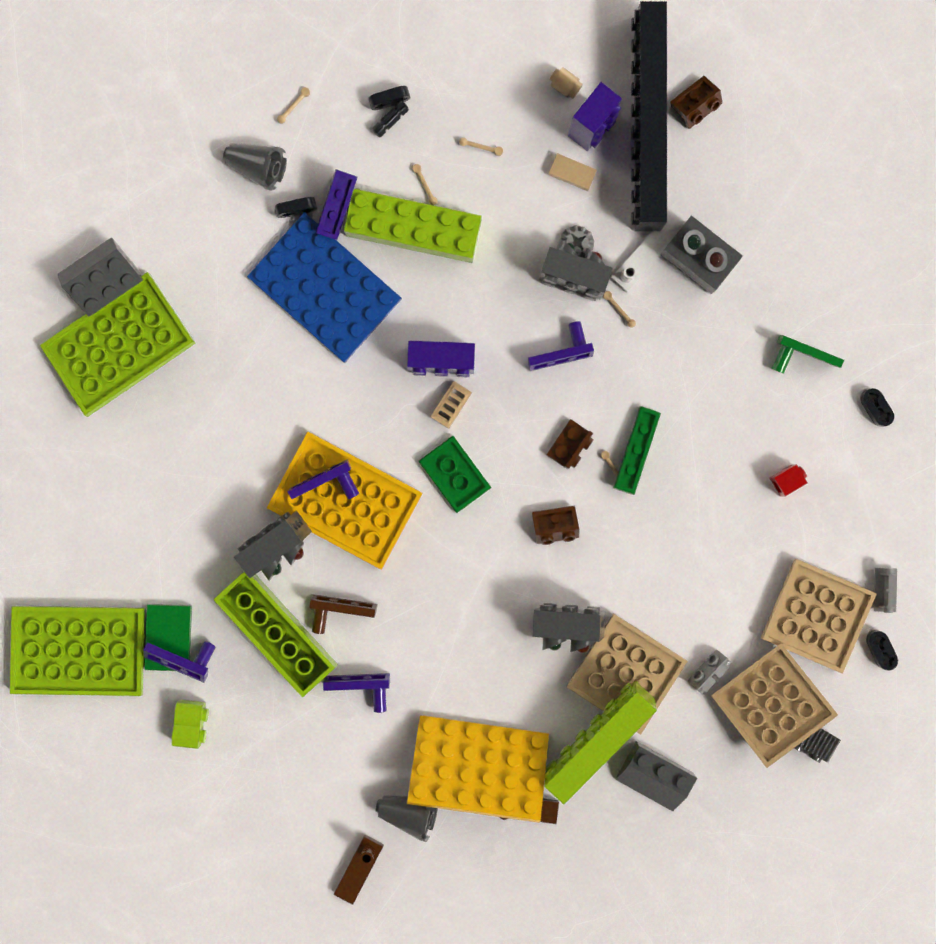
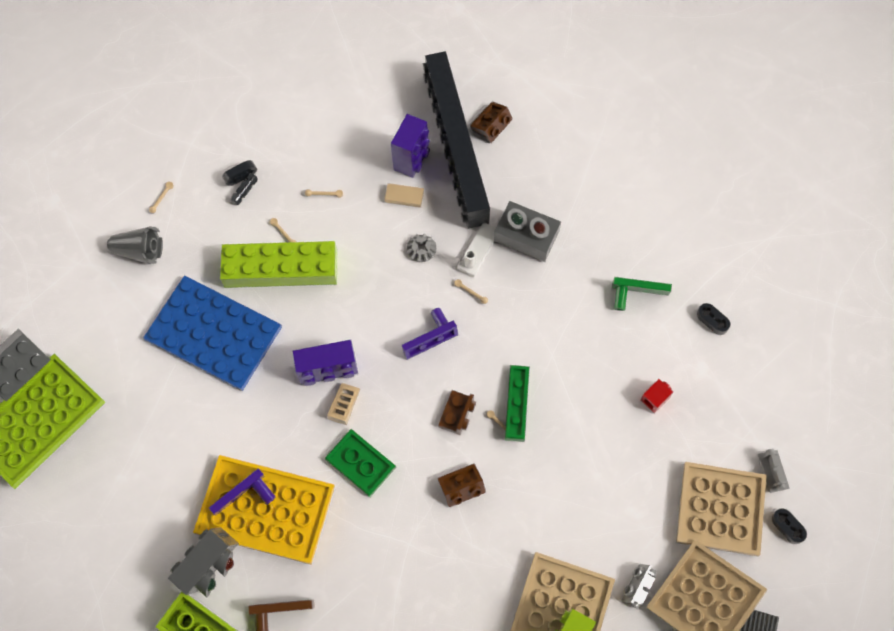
camera: 10 degrees left, 20 degrees down
(295, 207) = (176, 273): black beam -> none
(336, 204) = (209, 260): dark purple piece -> none
(565, 82) = (381, 130): tan brick -> none
(568, 623) = (494, 567): dark grey piece -> none
(575, 273) = (424, 267): dark grey piece -> none

